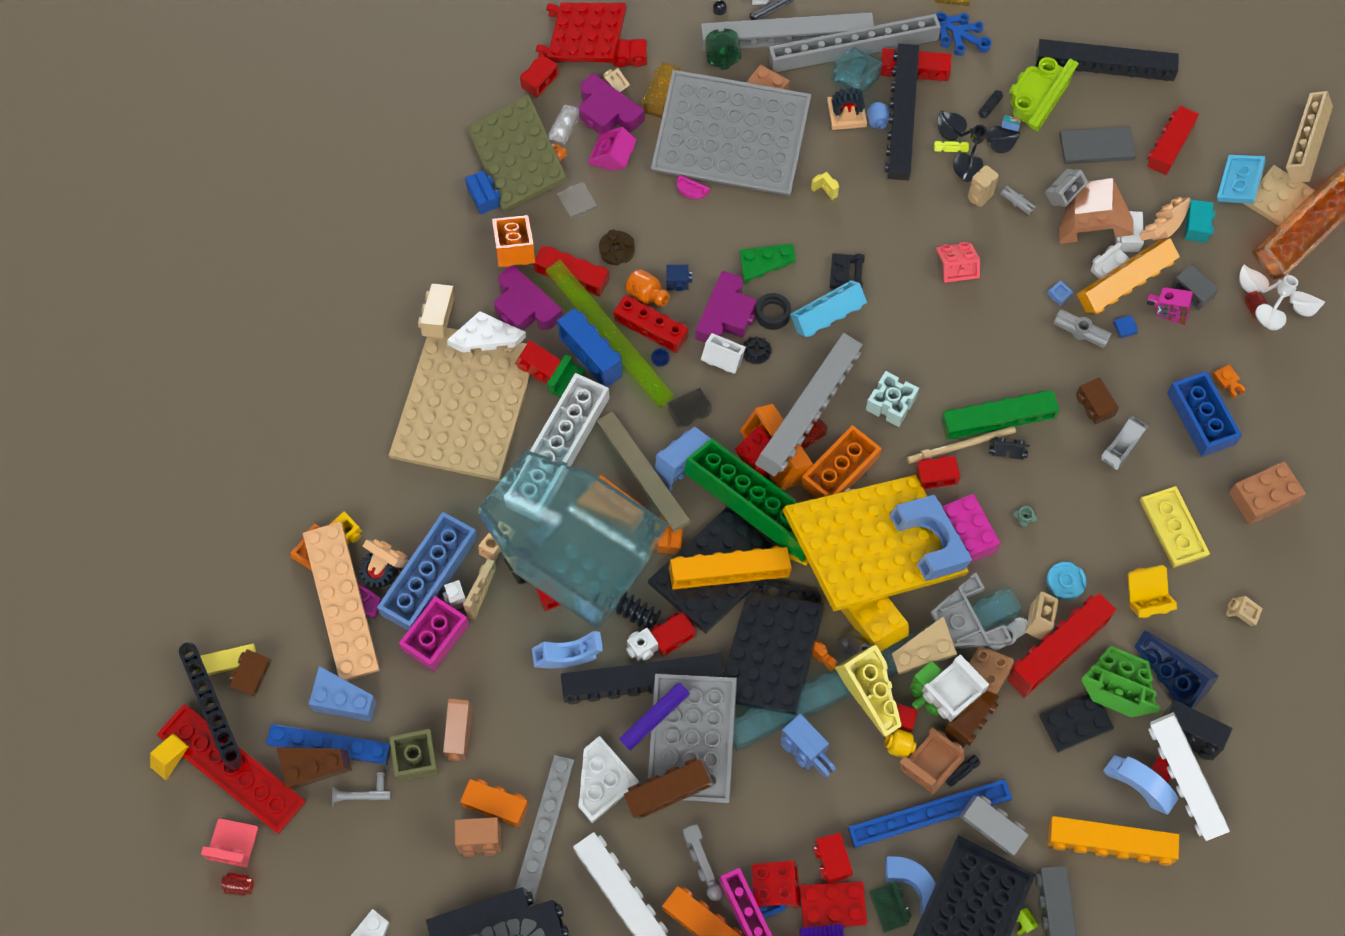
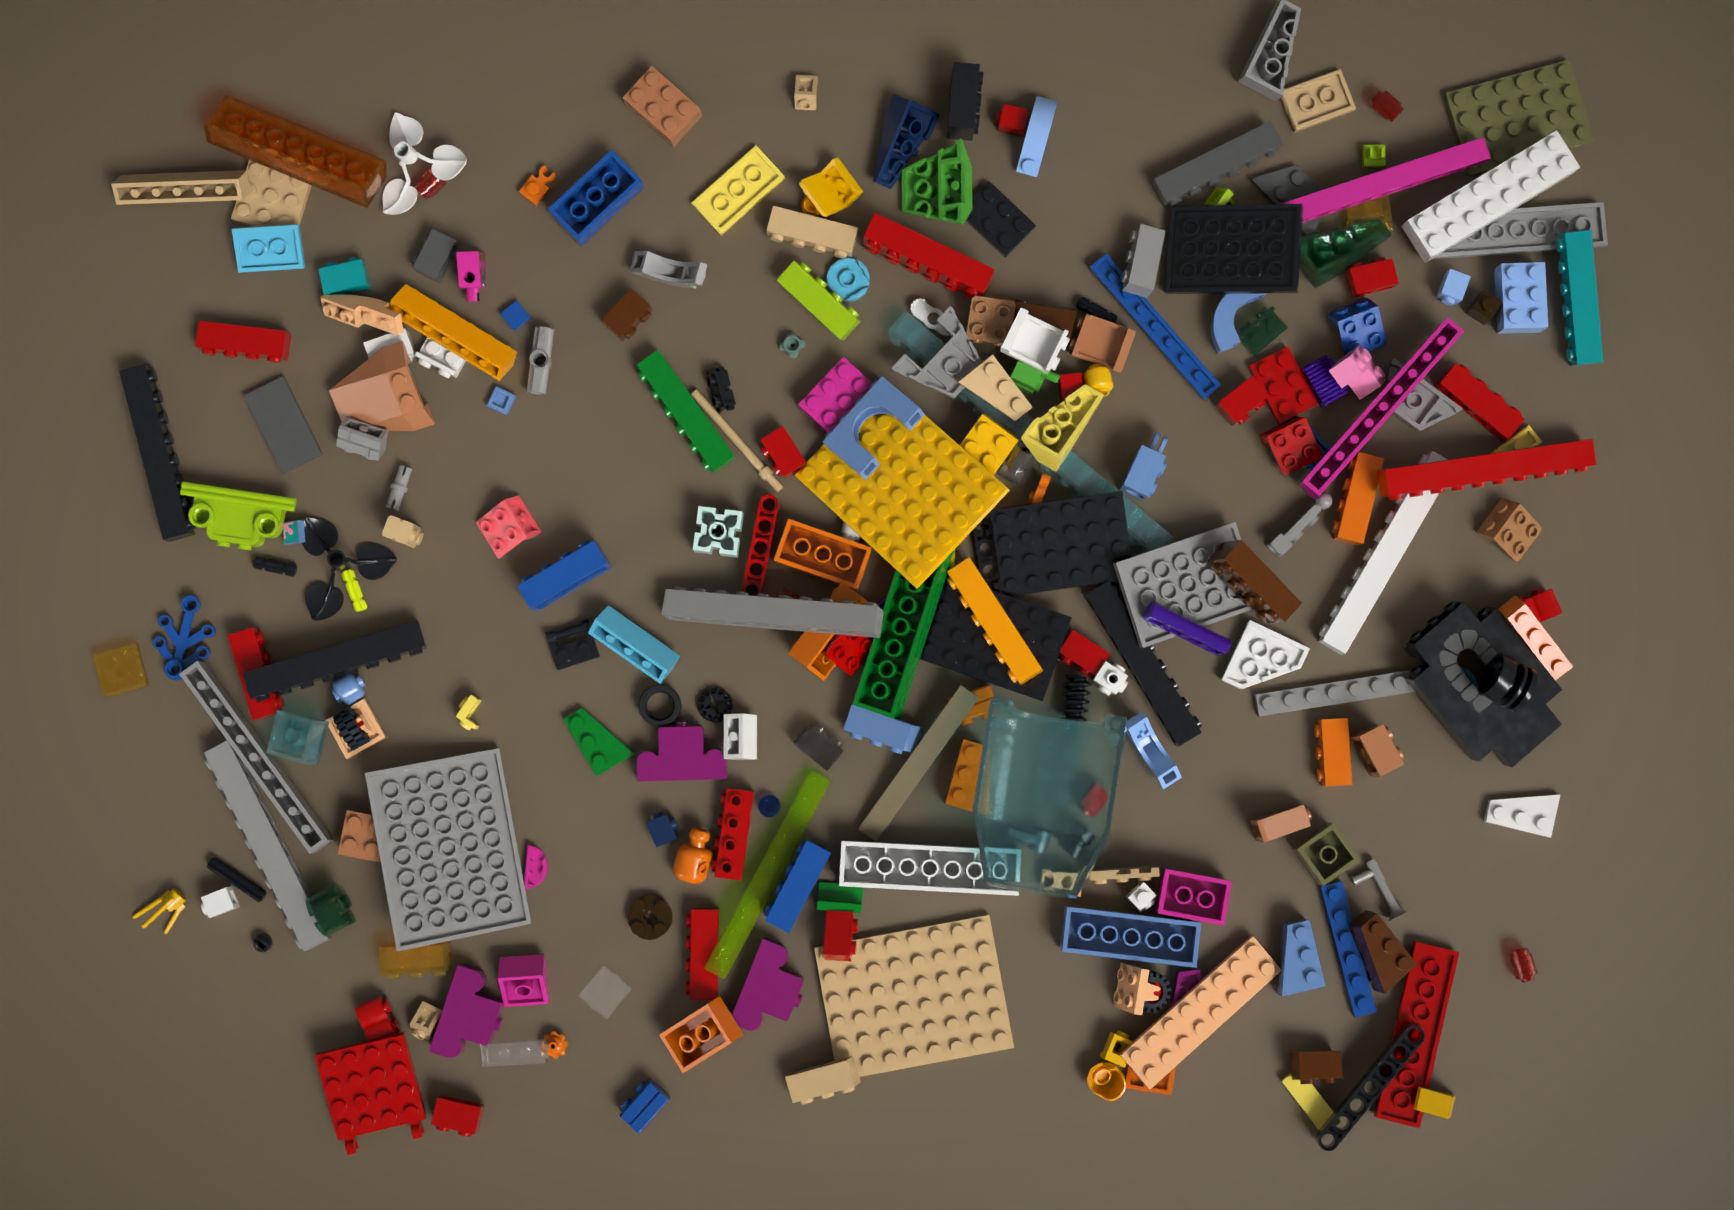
camera: 115 degrees left, 20 degrees up
(231, 843) = (1489, 992): coral bracket -> none
(326, 508) = (1106, 1081): none -> light orange hair
(485, 333) = (828, 1011): white plate -> none
(517, 153) = (576, 1090): olive plate -> none
(862, 418) = (761, 537): none -> red beam
(903, 279) = (564, 576): none -> blue brick
(1042, 615) = (905, 287): tan brick -> none
(1056, 547) = (819, 300): none -> lime brick
(1113, 840) = (1105, 145): light orange brick -> none
(1118, 563) = (812, 232): none -> tan brick
(1189, 777) = (1017, 90): white brick -> none

